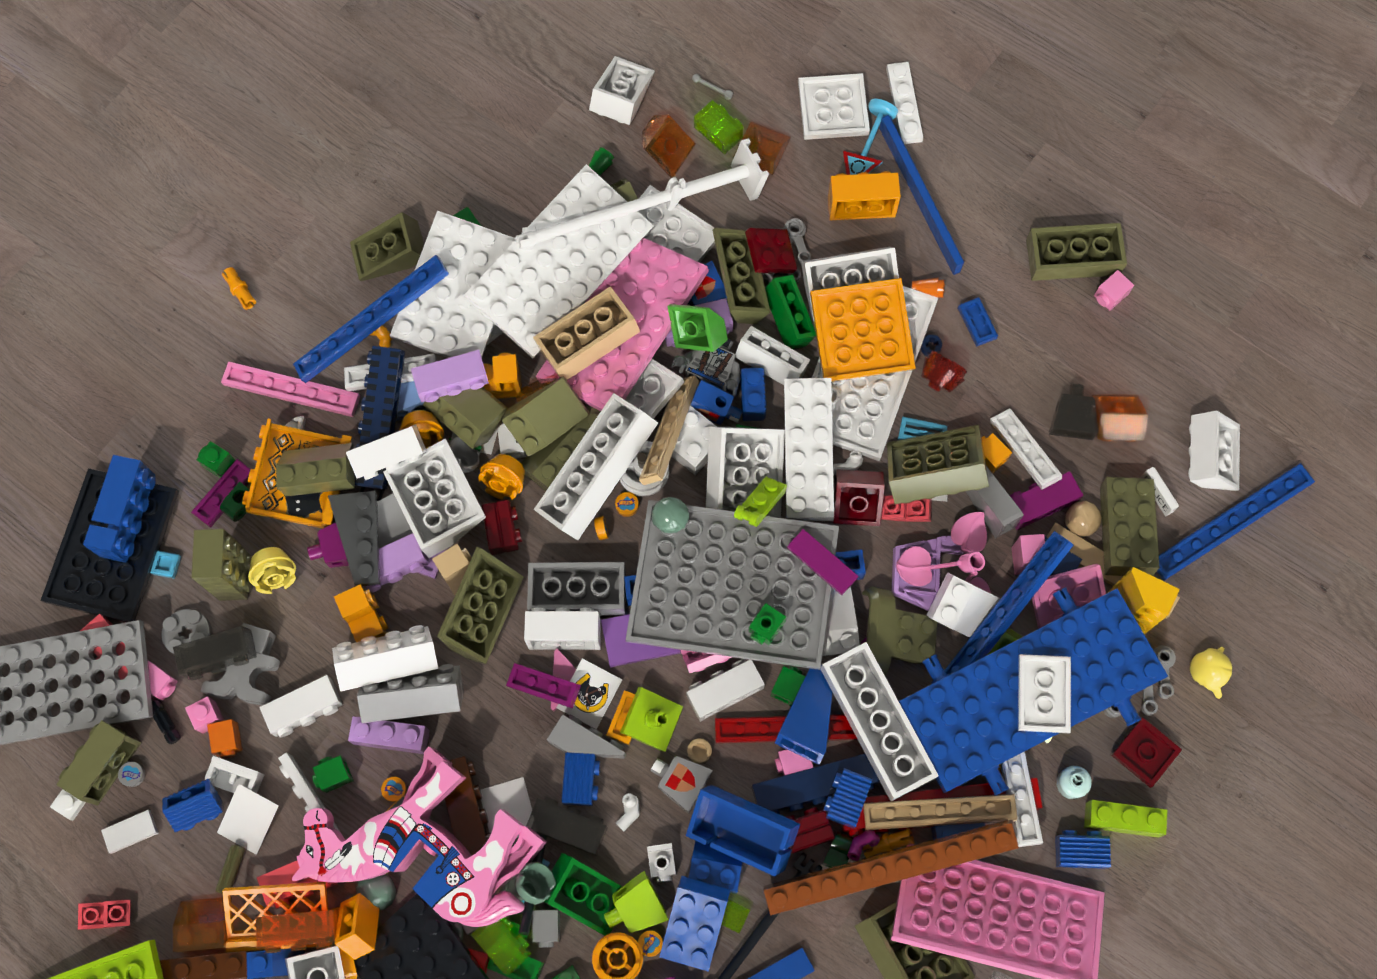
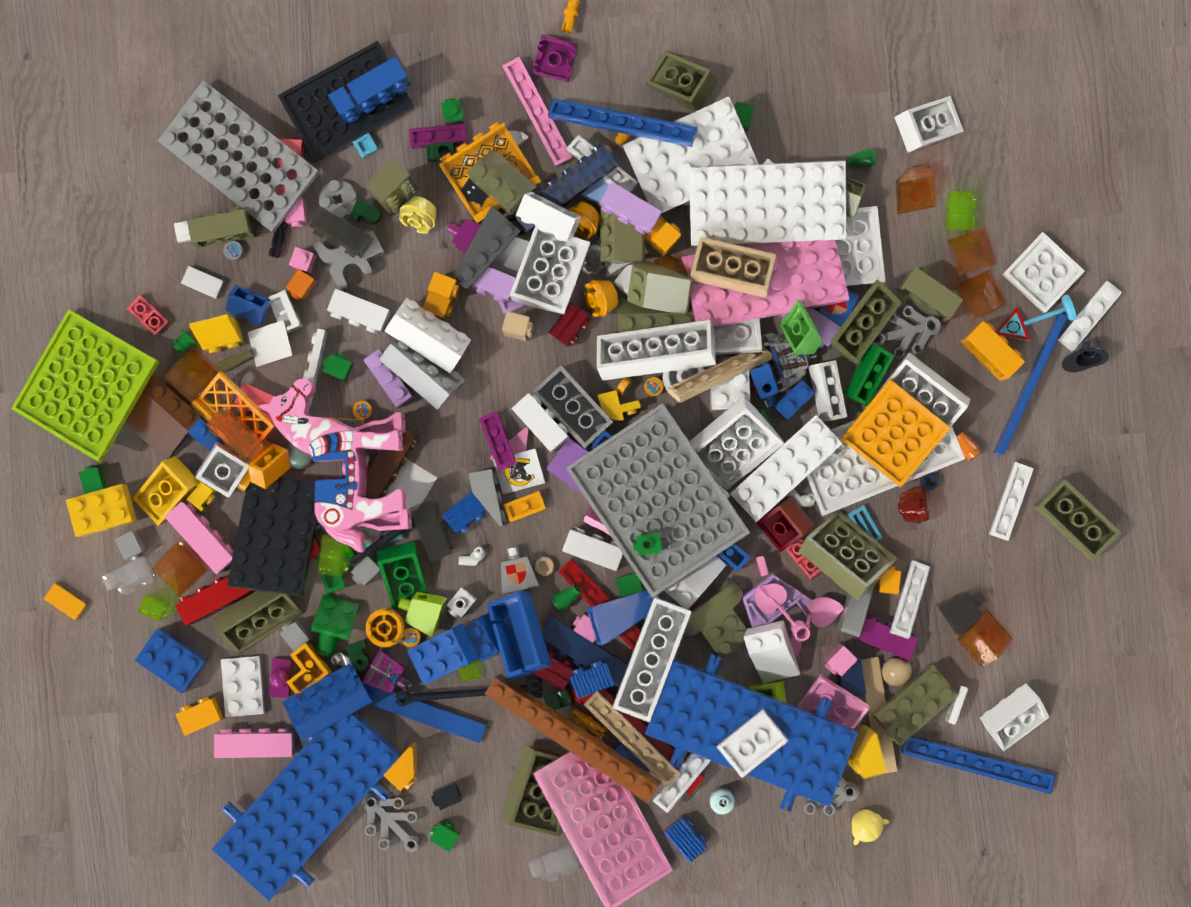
camera: 50 degrees right, 15 degrees up
(164, 902) = (184, 342): none -> green brick
(185, 857) = (217, 333): none -> yellow slope
(222, 616) = (365, 211): none -> dark green leg
(261, 334) = (555, 58): none -> magenta slope
(480, 607) = (508, 363): olive slope -> none
(535, 883) = (381, 544): sand green hair -> none
(608, 552) = (611, 406): none -> yellow brick
(651, 719) = (536, 522): lime tile -> none
(670, 515) = (664, 425): sand green hair -> none
(728, 94) = (990, 195): light grey hinge -> none
(744, 168) = (941, 259): white piece -> none
(747, 755) = (563, 599): none -> green cone
(760, 501) = (723, 471): lime plate -> none
(767, 203) = (930, 294): none -> olive brick
(771, 250) = (899, 326): dark red plate -> none
(804, 172) = (979, 295): none -> clear orange slope
(822, 562) = (717, 543): magenta tile -> none
(861, 840) = (575, 707): magenta arm -> none
(878, 551) = (761, 564): none -> bright pink tile
(937, 130) = (1087, 355): none -> black piece
(977, 322) = (971, 497): blue plate -> none
(1011, 293) = (1011, 501): none -> white plate
(1012, 602) = (794, 676): blue tile -> none
(1113, 290) = (1071, 565): bright pink brick -> none
(1125, 818) = (727, 848): lime brick -> none
(1146, 752) = (779, 828): dark red plate -> none

